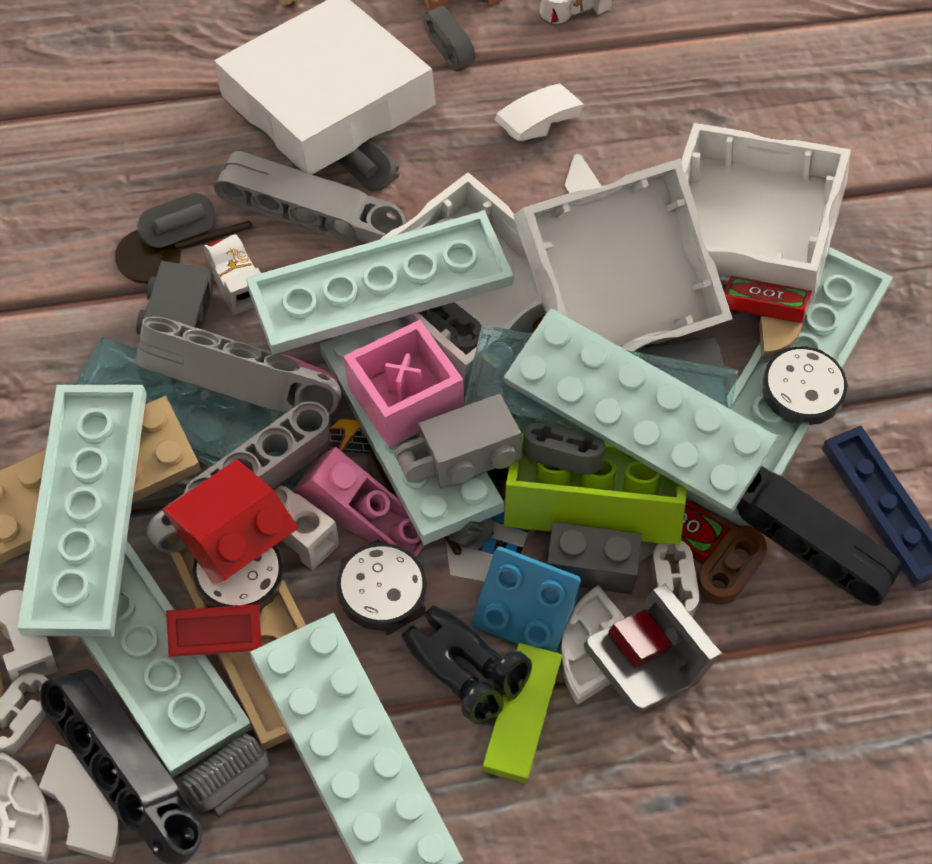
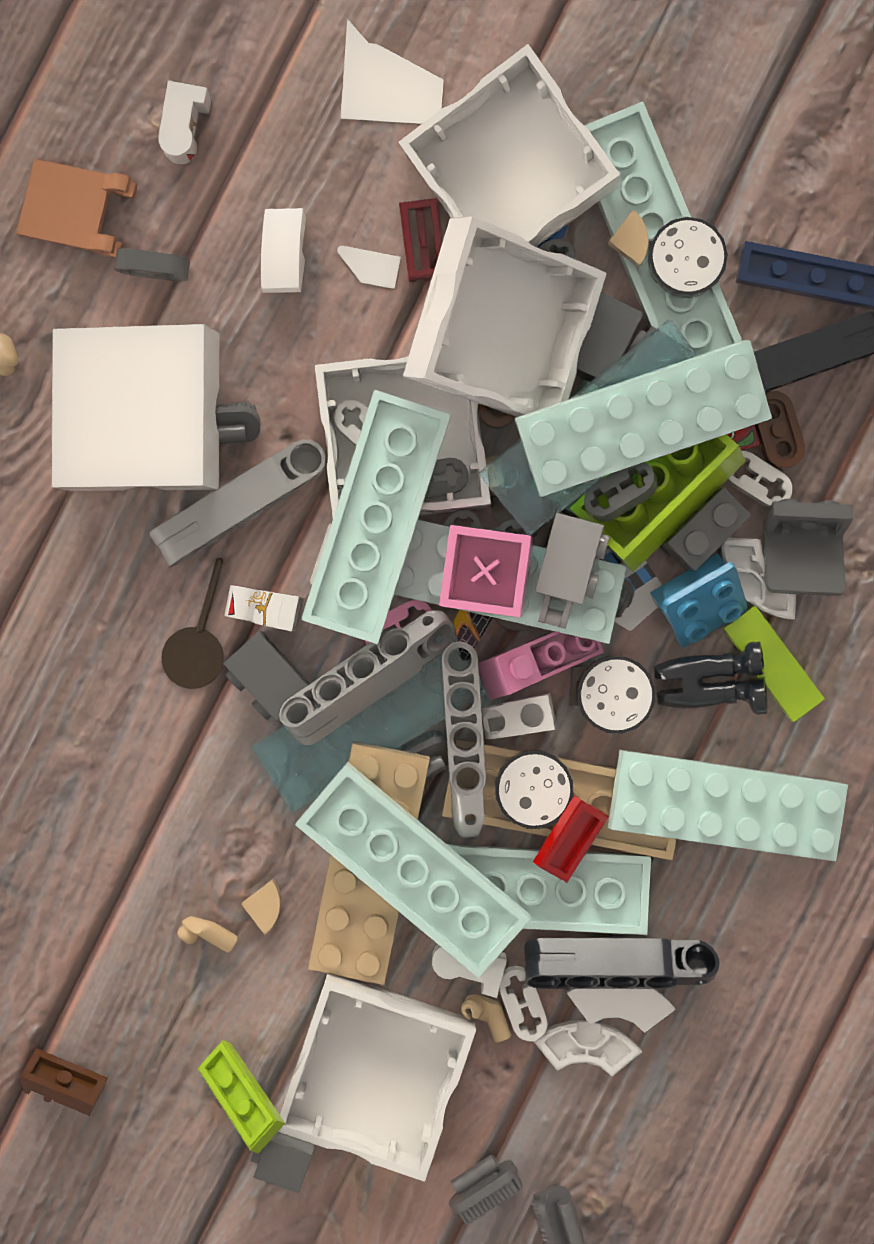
camera: 45 degrees left, 30 degrees up
(176, 220) = (179, 617): dark grey piece -> none
(227, 777) = (675, 898): flat silver piece -> none
(230, 520) = (510, 781): red slope -> none
(639, 638) = (792, 547): dark red tile -> none
(728, 101) = (384, 85): none -> white sticker
(767, 299) = (598, 223): red tile -> none

